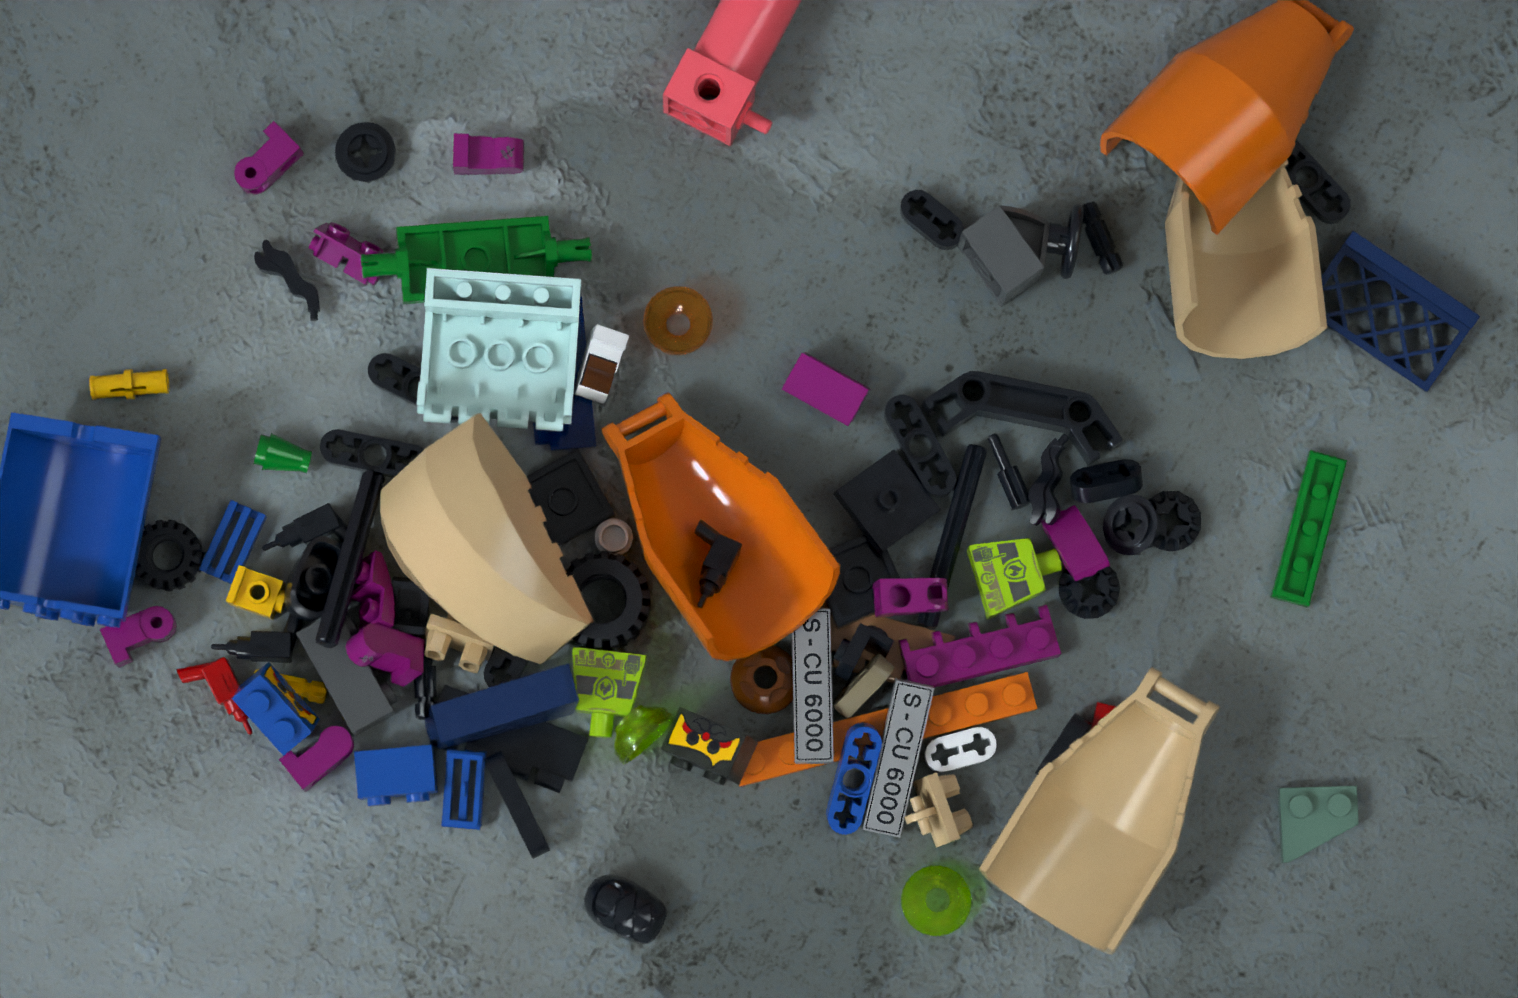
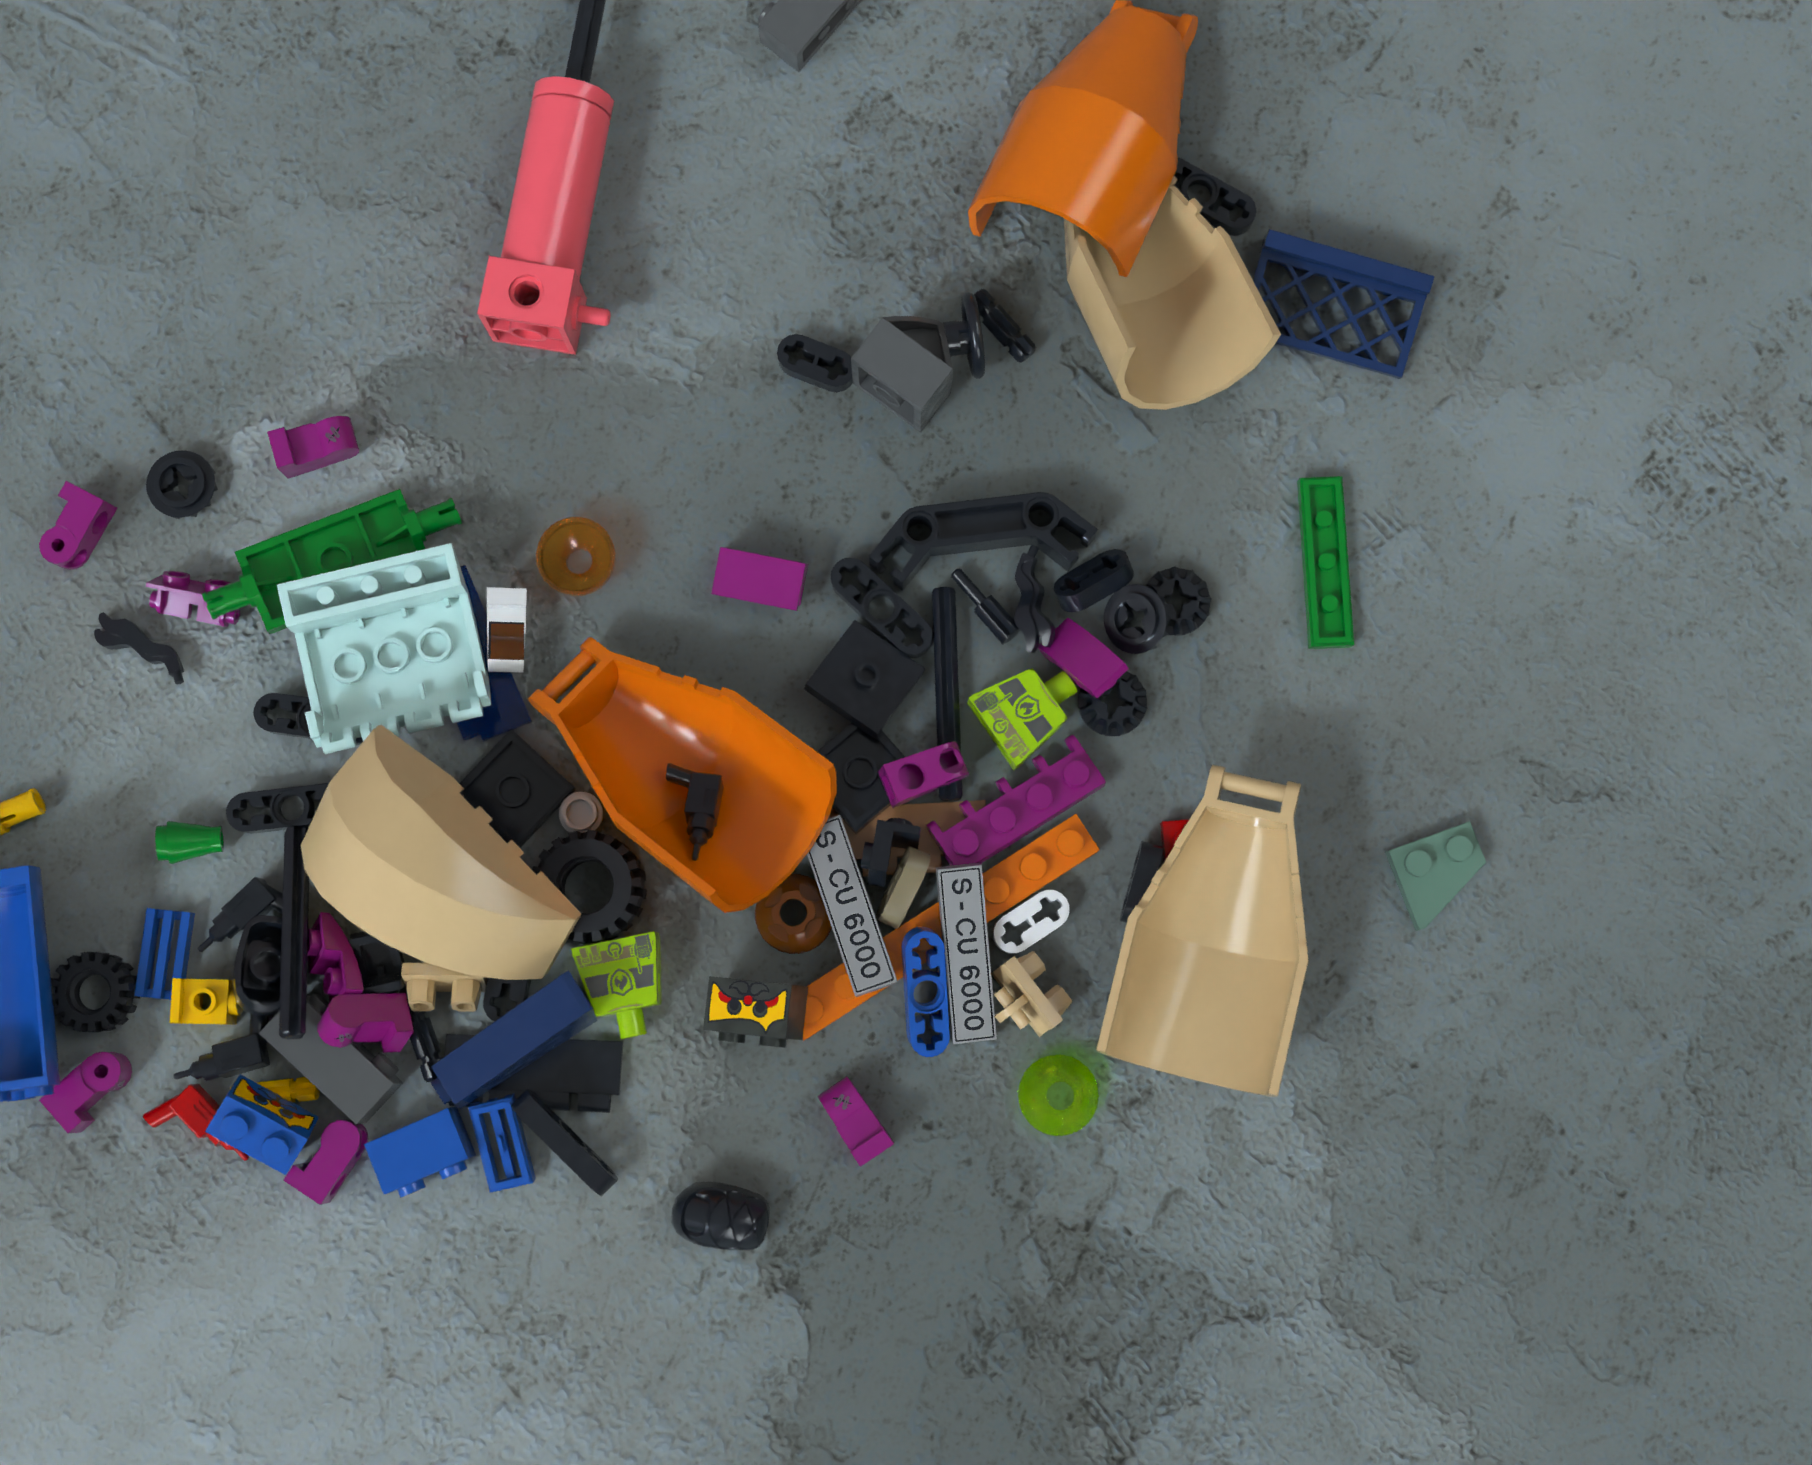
camera: 15 degrees left, 0 degrees up
(640, 731) = (674, 1017): clear neon green piece -> none
(761, 866) = (855, 1121): none -> magenta leg

